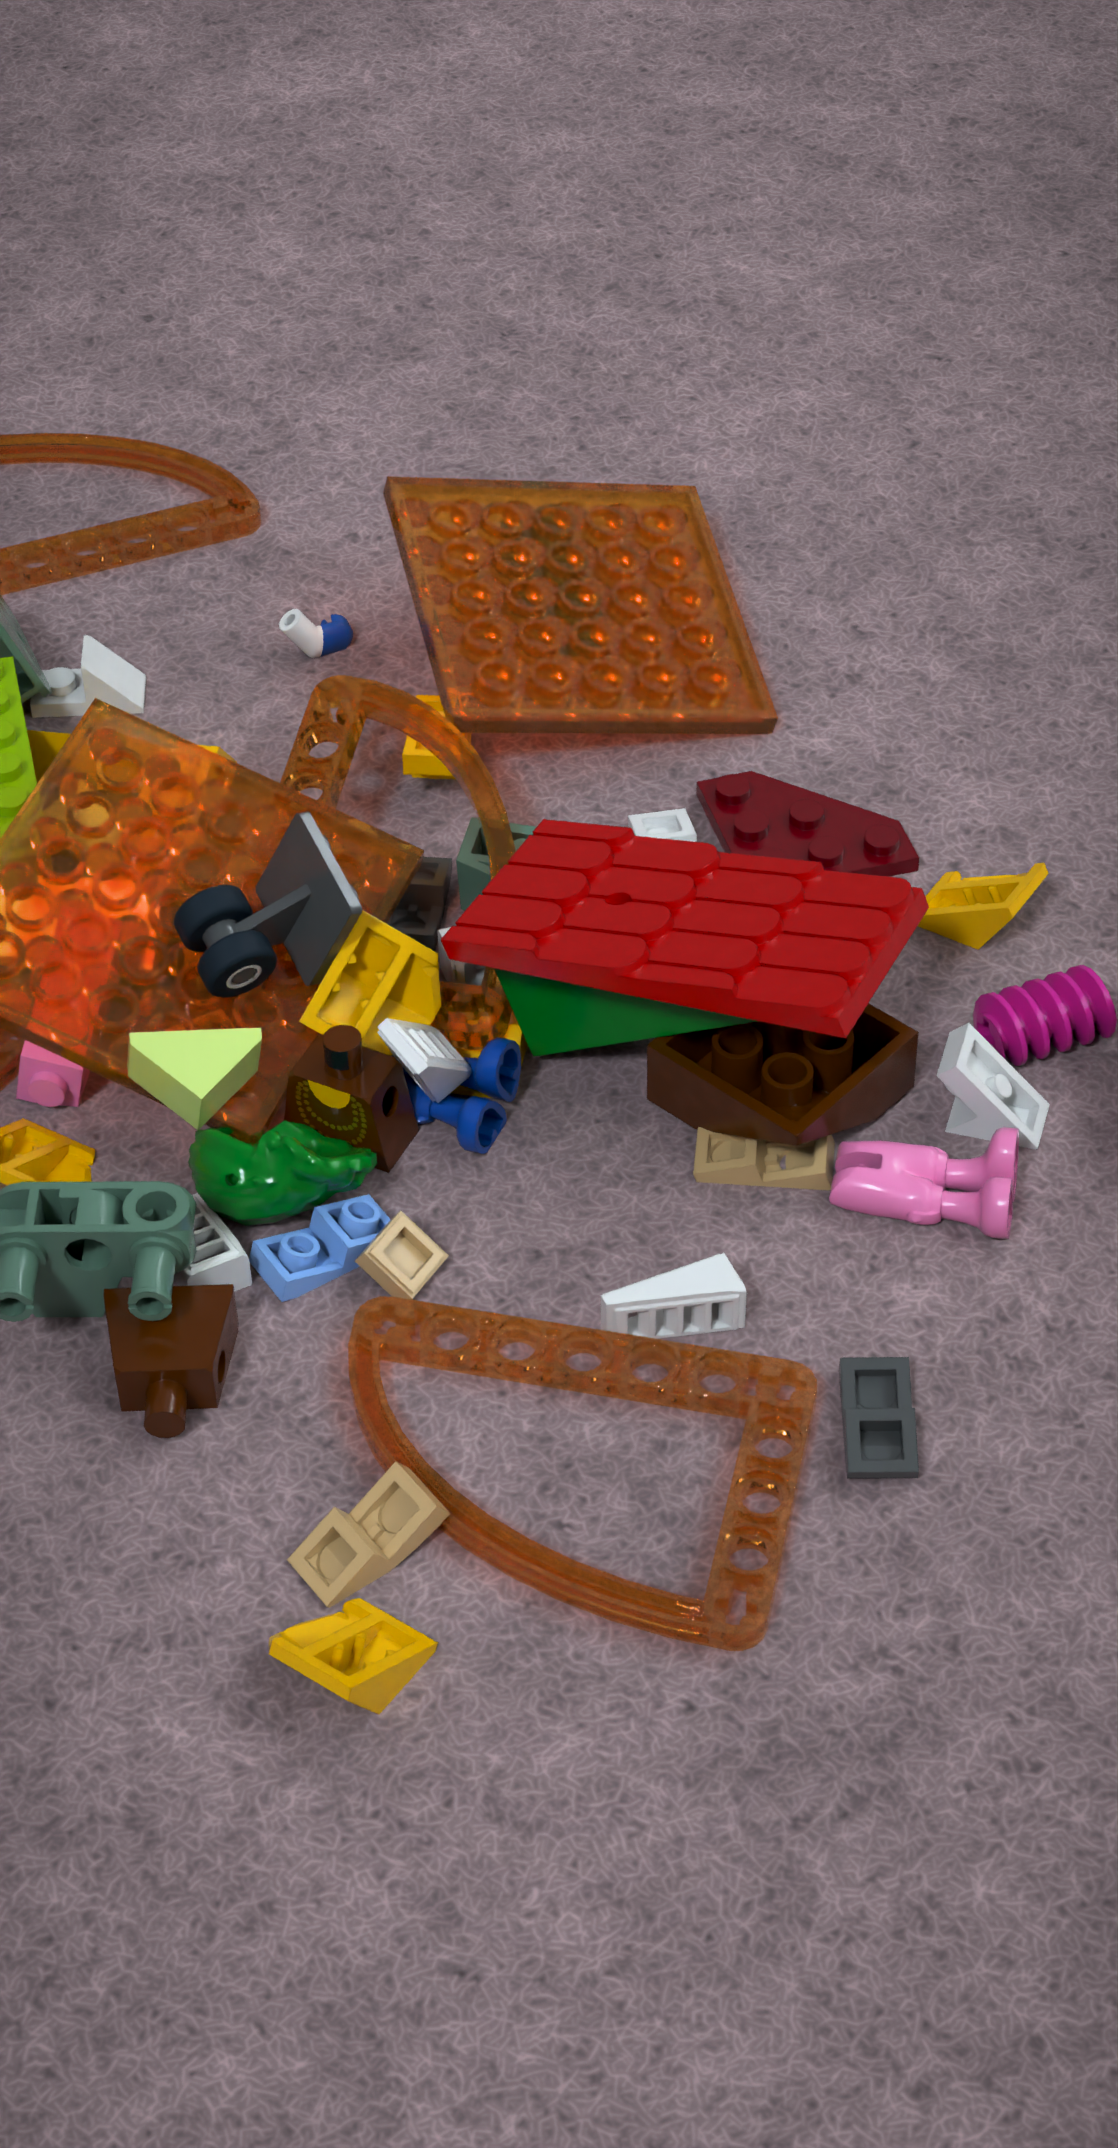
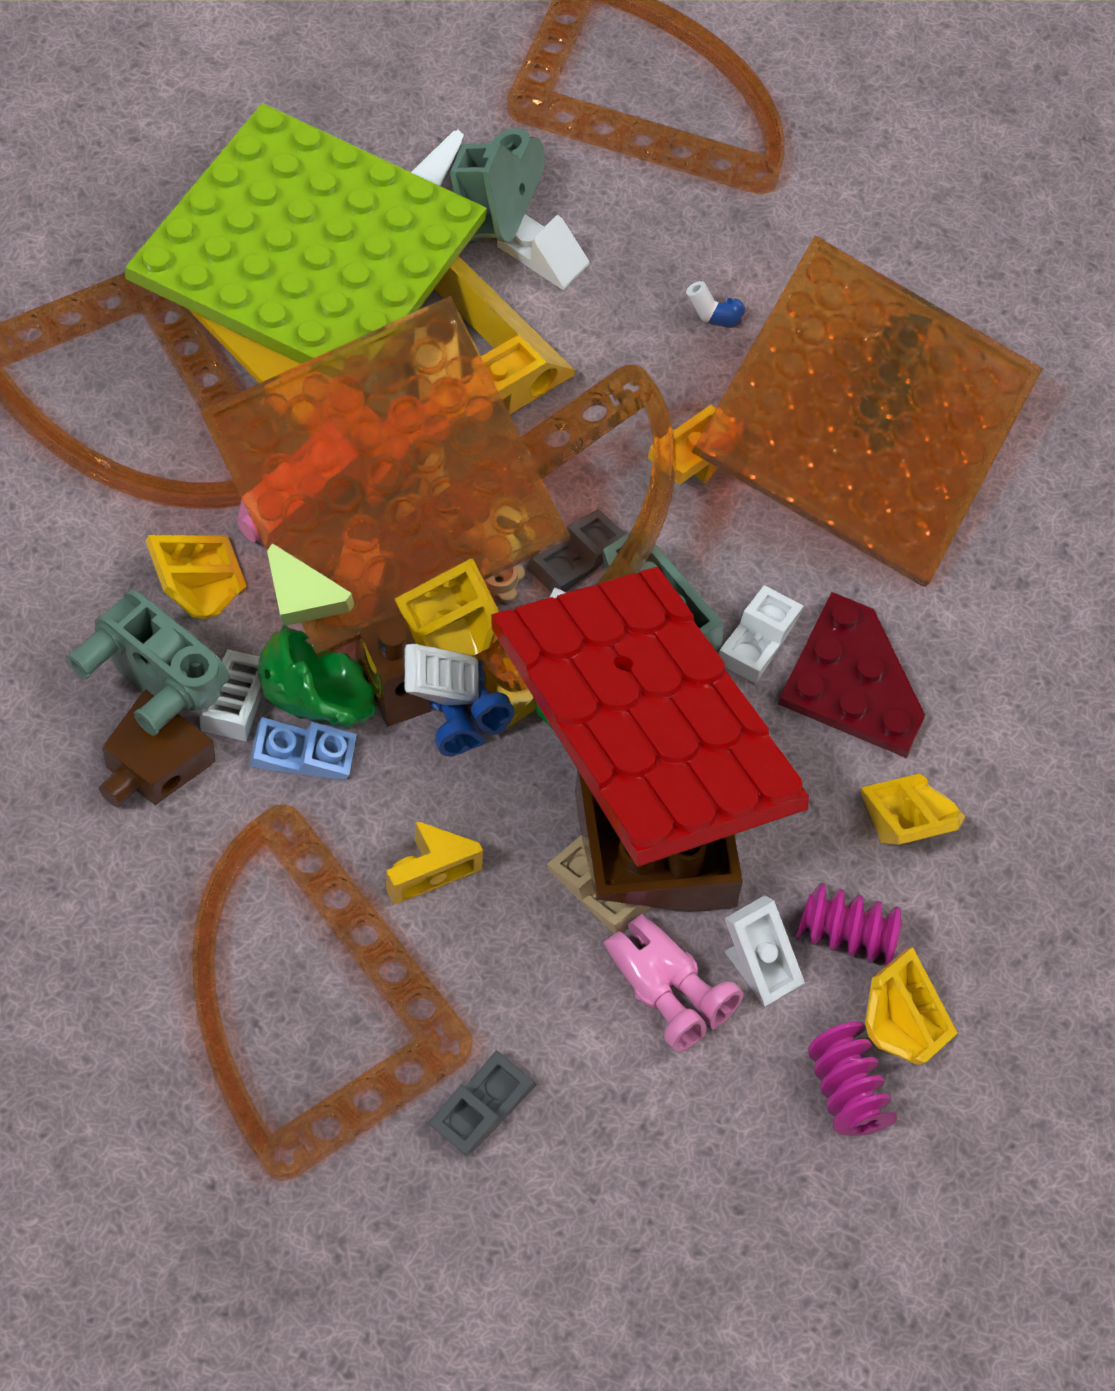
camera: 35 degrees right, 15 degrees up
(304, 908) = (393, 518): dark grey plate -> none
(355, 1653) = (69, 1011): yellow slope -> none
(372, 1539) = (147, 952): tan slope -> none
(401, 1257) = (330, 791): tan tile -> none
(583, 1239) = (443, 860): none -> yellow slope
(679, 1302) = (447, 943): white slope -> none

